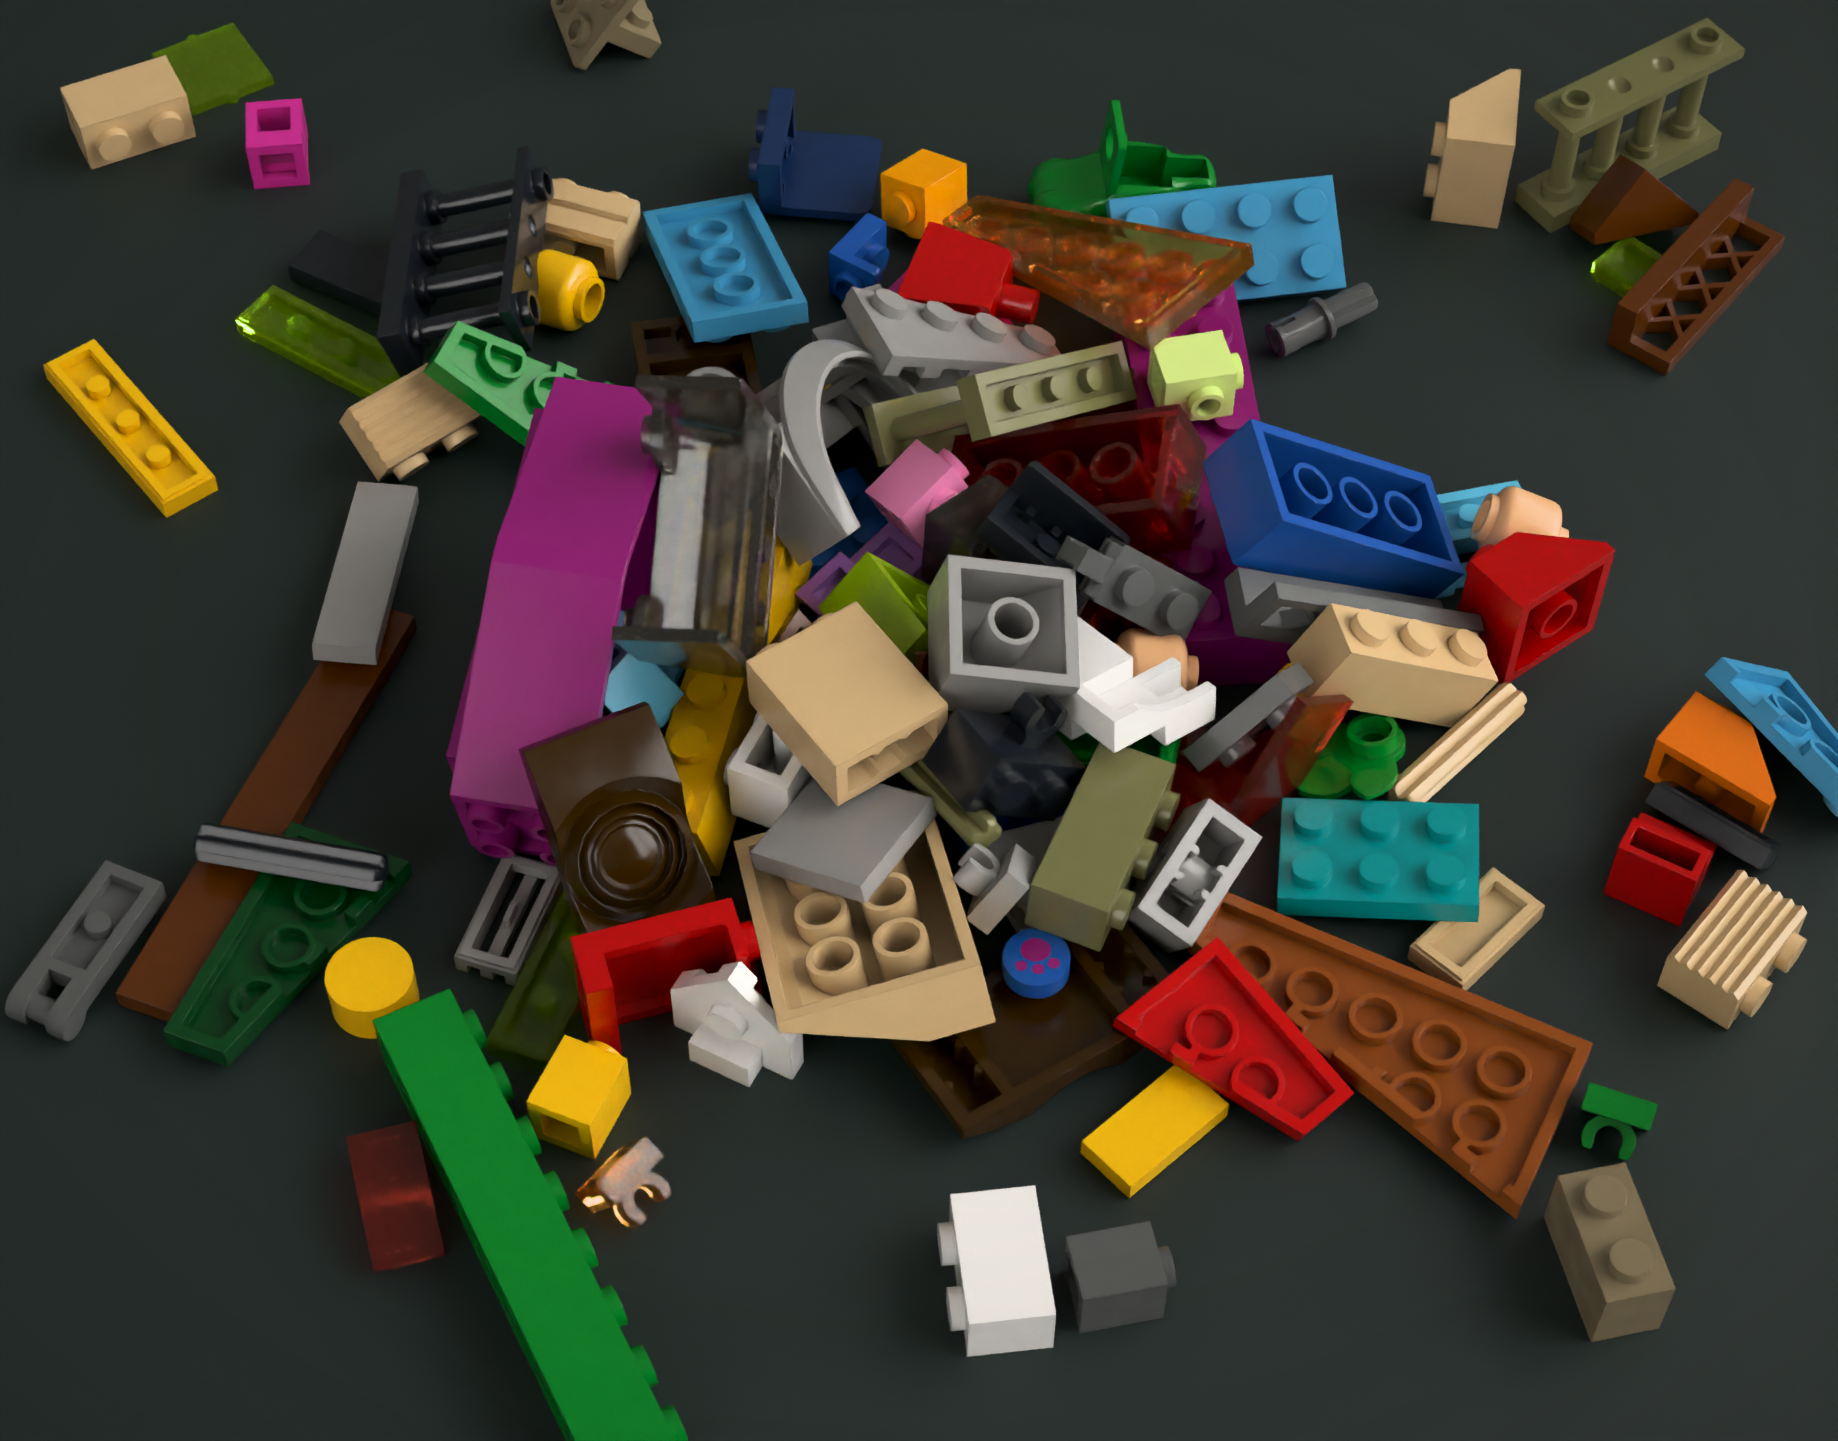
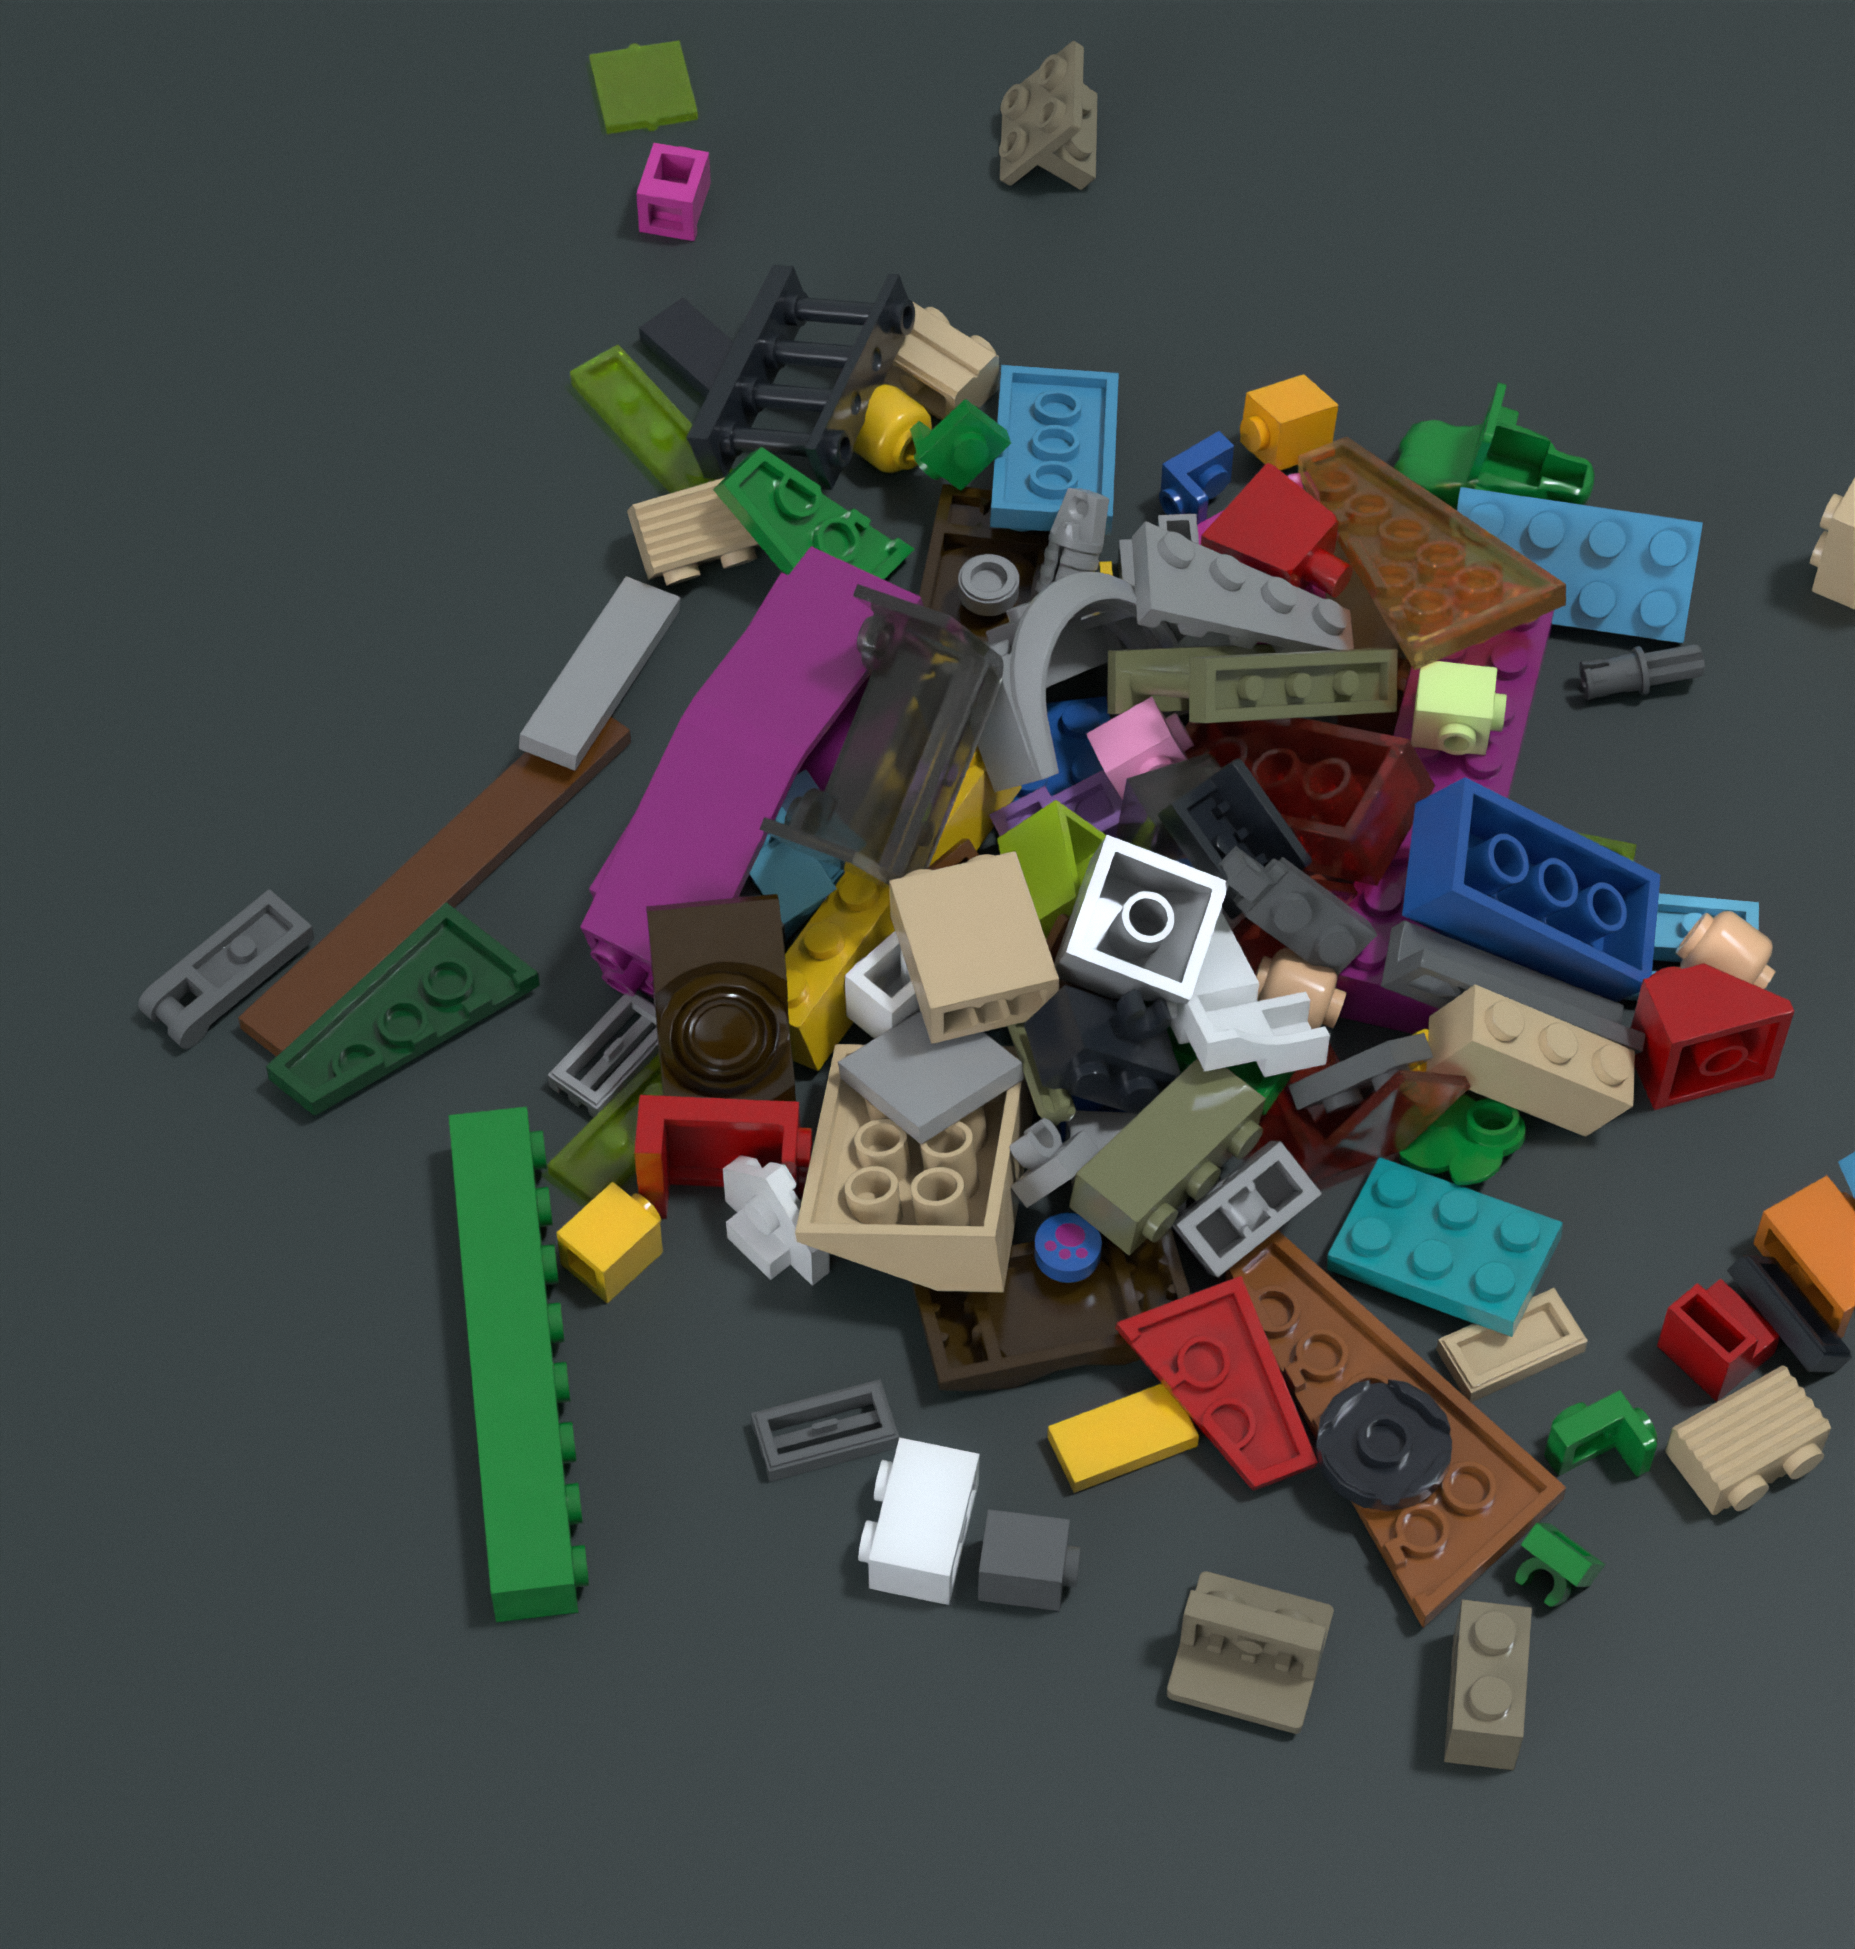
camera: 20 degrees right, 5 degrees up
(128, 112) = (542, 118): tan brick -> none
(130, 428) = (435, 458): yellow tile -> none
(291, 857) = (431, 937): axle -> none
(368, 982) = (463, 1077): yellow piece -> none
(395, 1196) = (417, 1281): clear red slope -> none
(620, 1178) = (618, 1328): clear orange tile -> none
(637, 280) = (959, 445): none -> green bracket
(779, 328) = (1075, 536): none -> light grey hinge
(811, 170) = (1188, 361): dark blue bracket -> none
(868, 1241) = (830, 1452): none -> dark grey tile
(1369, 1295) = (1249, 1651): none -> dark tan bracket
(1411, 1056) = (1384, 1444): none -> black tile
(1459, 745) = (1577, 1157): tan axle -> none
(1604, 973) = (1589, 1431): none -> green bracket

